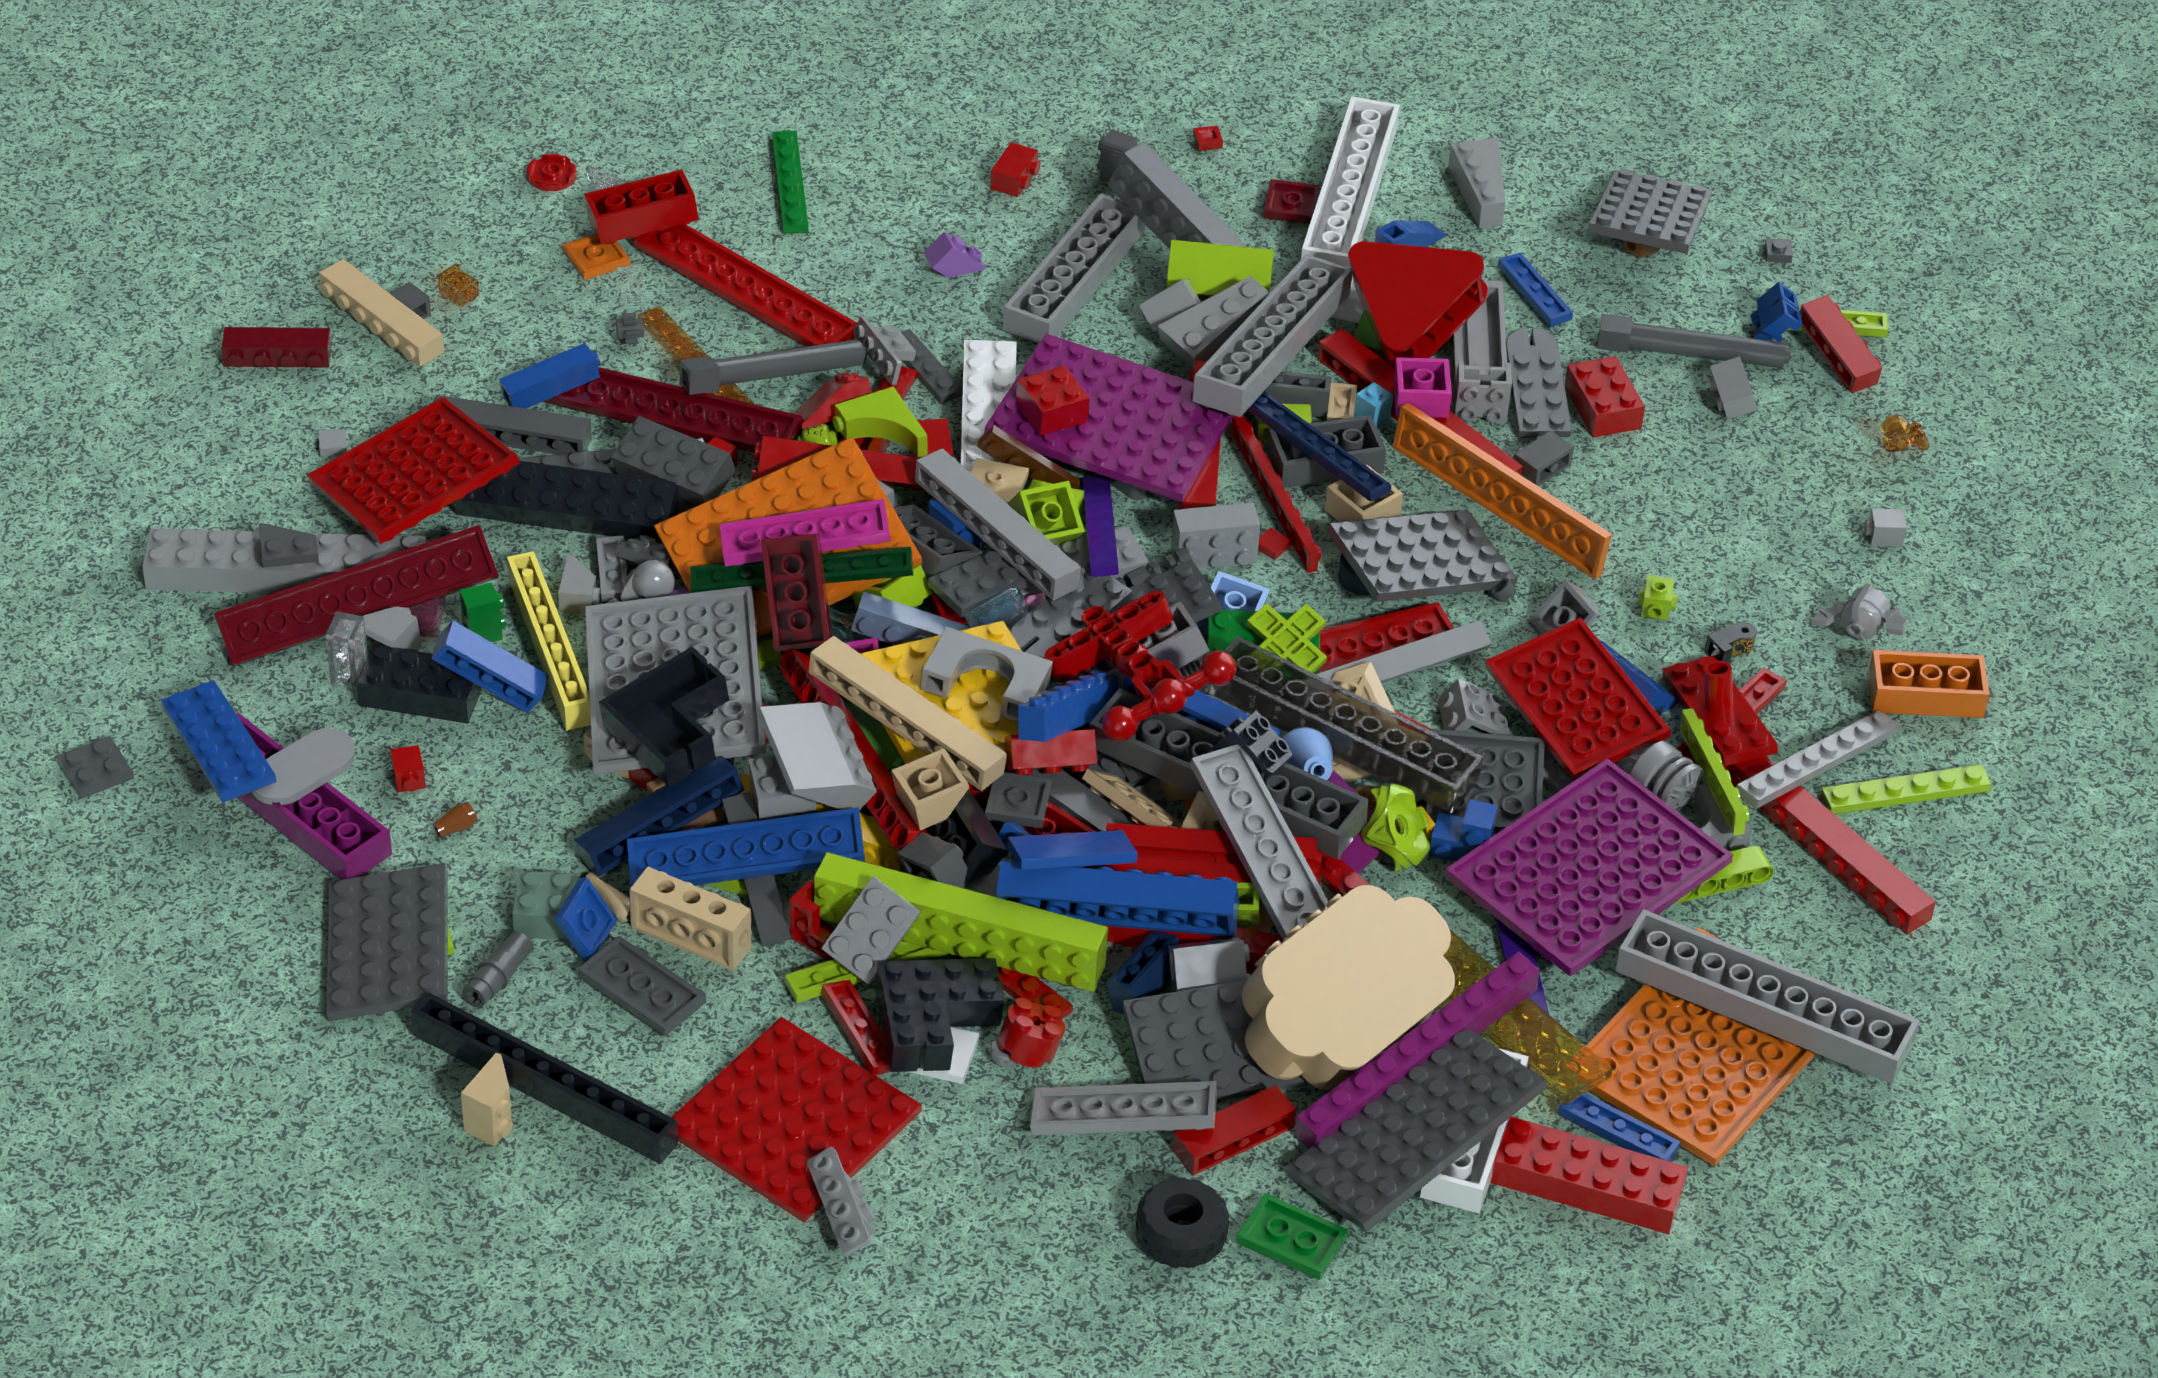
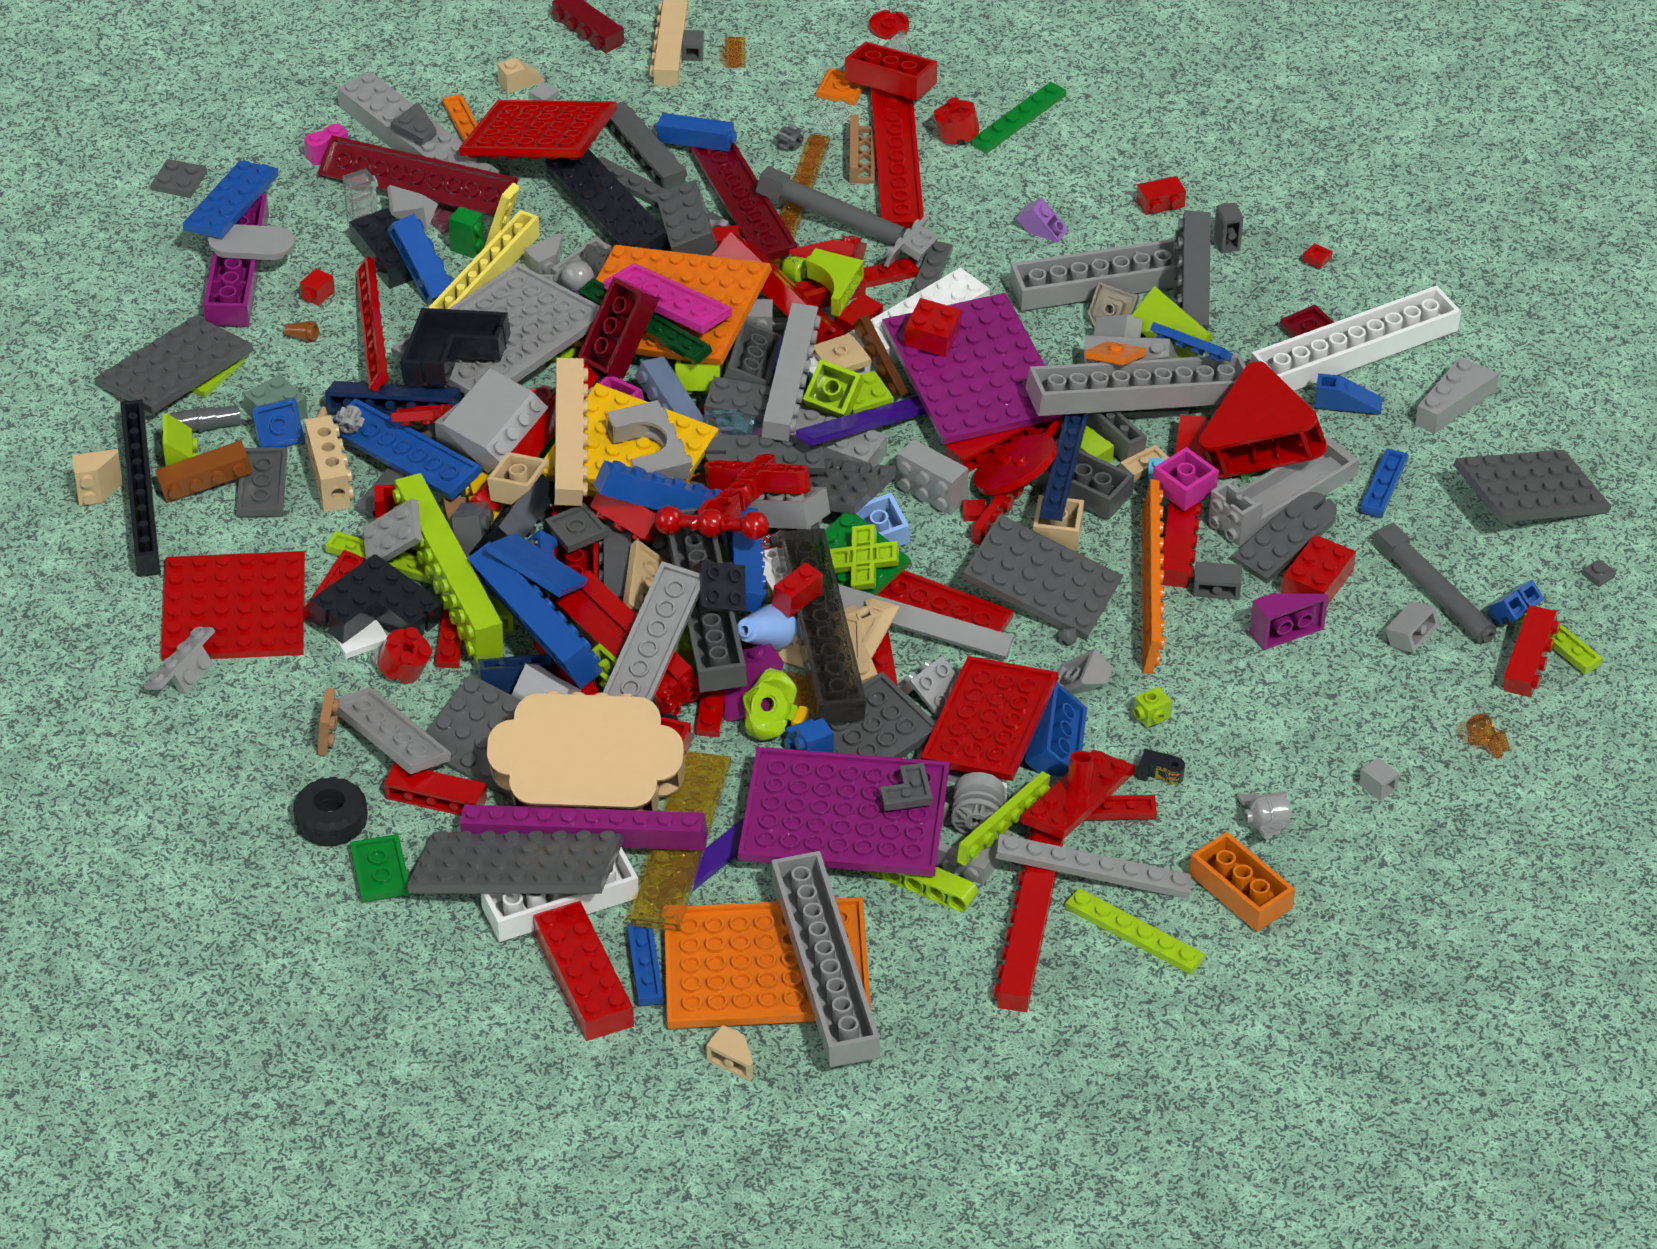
camera: 50 degrees right, 0 degrees up
(202, 630) = (318, 141): none -> dark pink brick
(285, 443) = (517, 75): none -> tan slope
(293, 517) = (460, 115): none -> orange tile
(517, 569) = (503, 211): none -> light yellow tile
(521, 1014) = (177, 440): none -> lime slope
(533, 759) = (372, 324): none -> red plate
(586, 1012) = (203, 471): none -> dark orange brick
(665, 857) = (349, 419): none -> light grey gear
(704, 302) = (855, 150): none -> medium nougat fence
(727, 802) = (426, 414): none -> red plate
(757, 216) = (956, 121): none -> red brick
(1061, 1146) = (328, 722): none -> medium nougat plate
(1129, 288) = (1111, 301): none -> dark tan piece
(1228, 318) = (1115, 353): none -> orange plate
(1268, 469) = (1015, 464): none -> red plate
(1278, 266) = (1197, 345): none -> blue plate
(1311, 701) = (797, 589): none -> red brick
(1627, 802) = (911, 793): none -> dark grey plate
(1642, 451) = (1286, 617): none -> magenta slope
(1798, 1140) = (730, 1051): none -> tan slope

